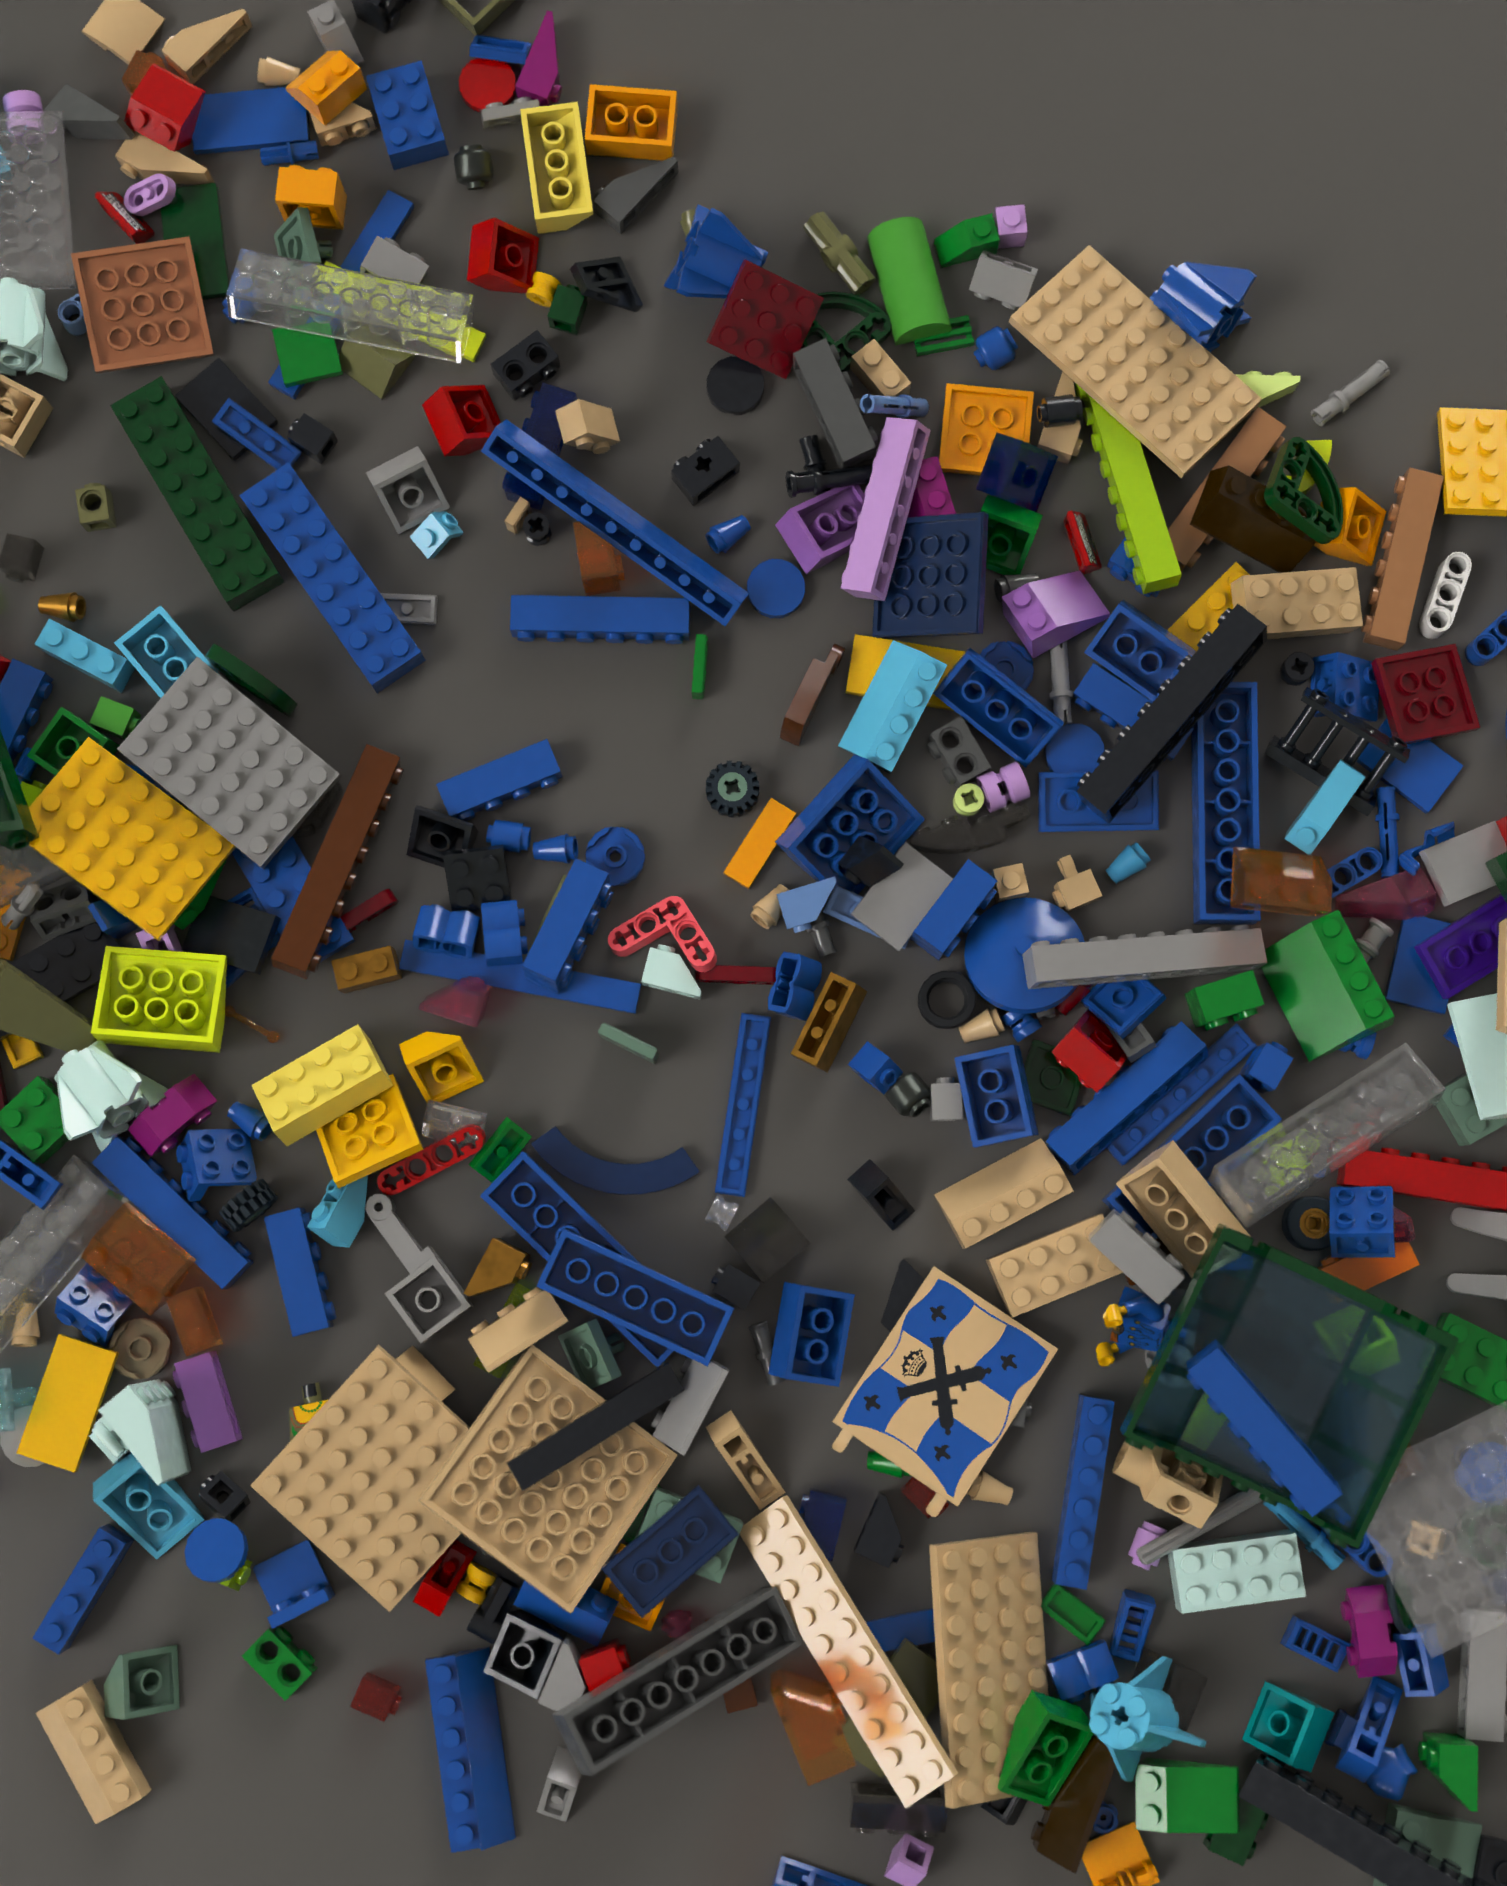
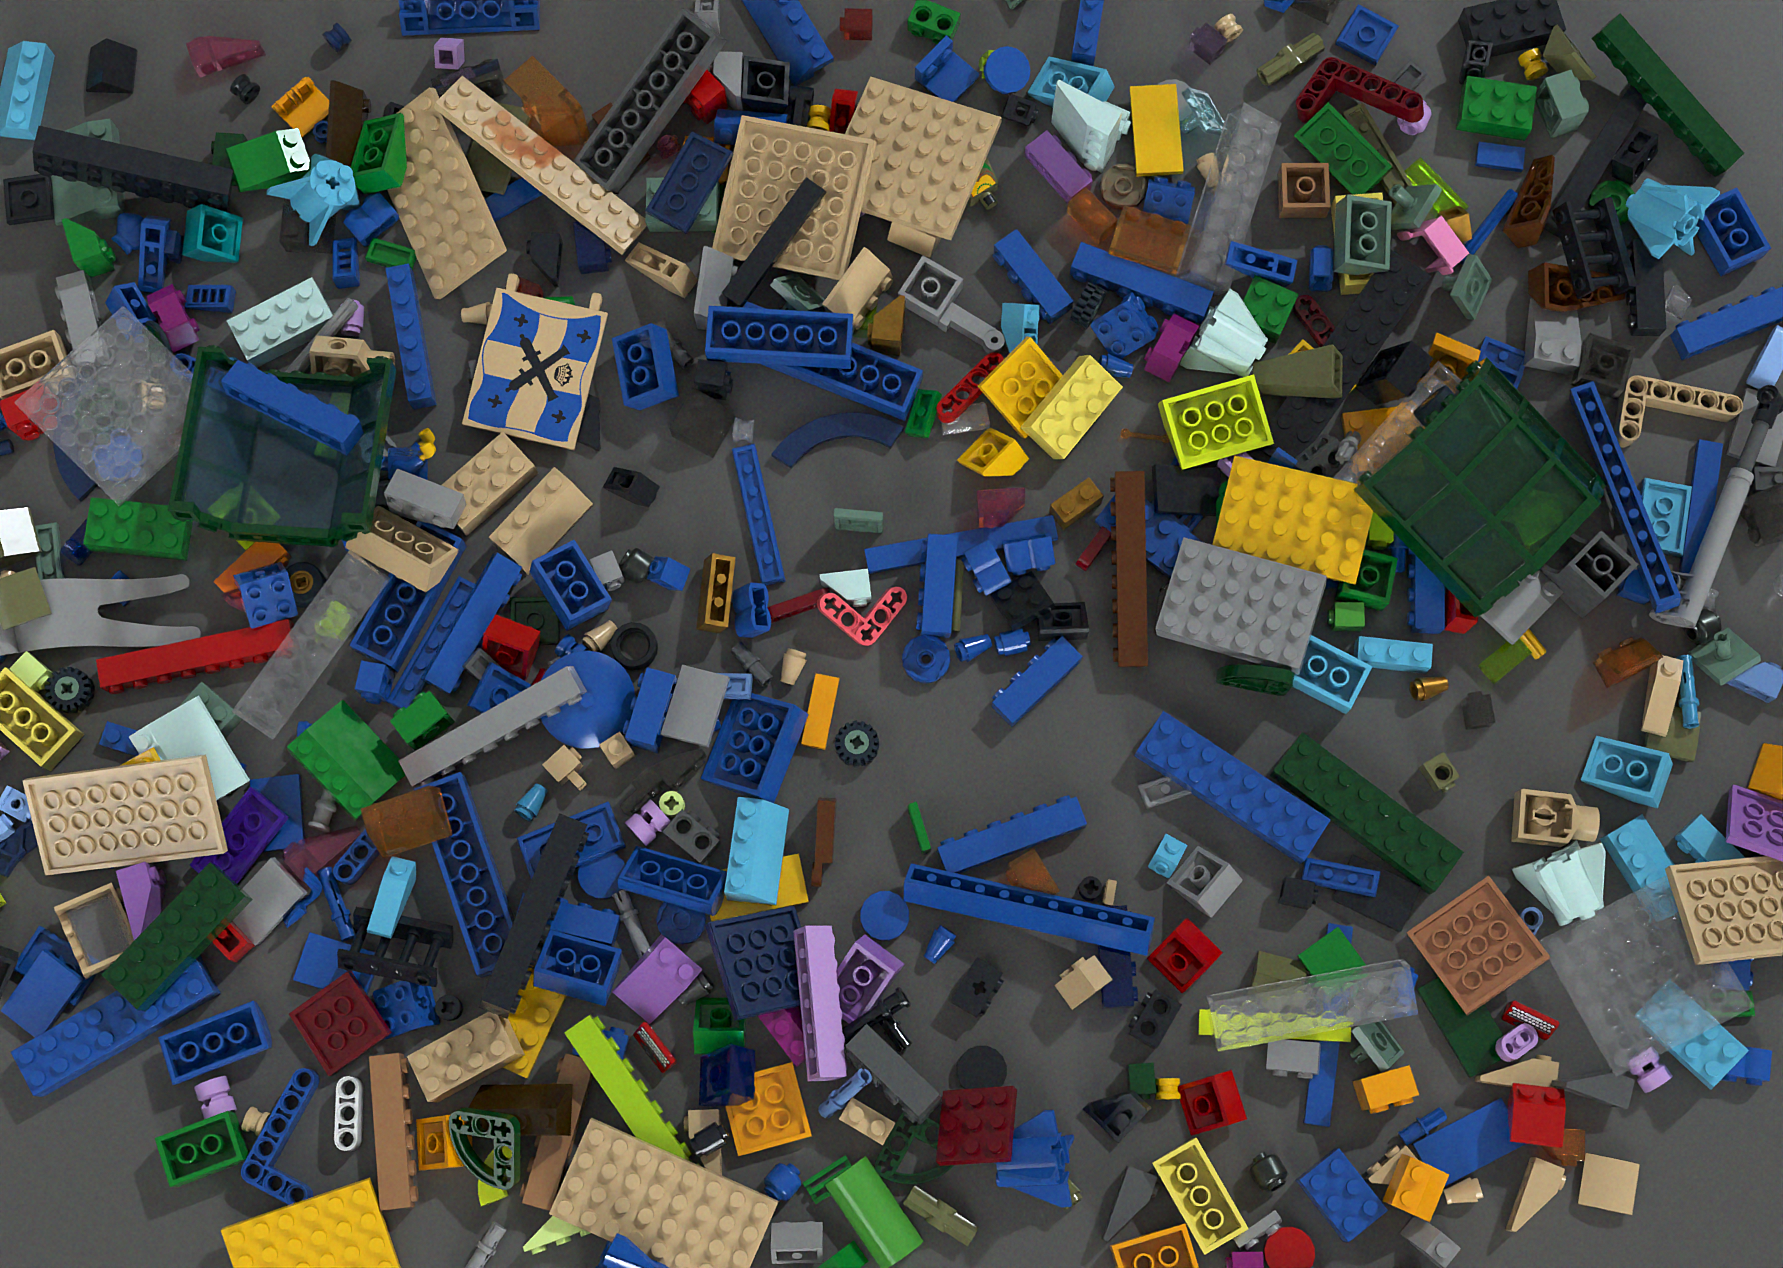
camera: 160 degrees right, 5 degrees down
(804, 903) = (766, 671): medium blue slope -> none
(868, 862) = (730, 720): black slope -> none

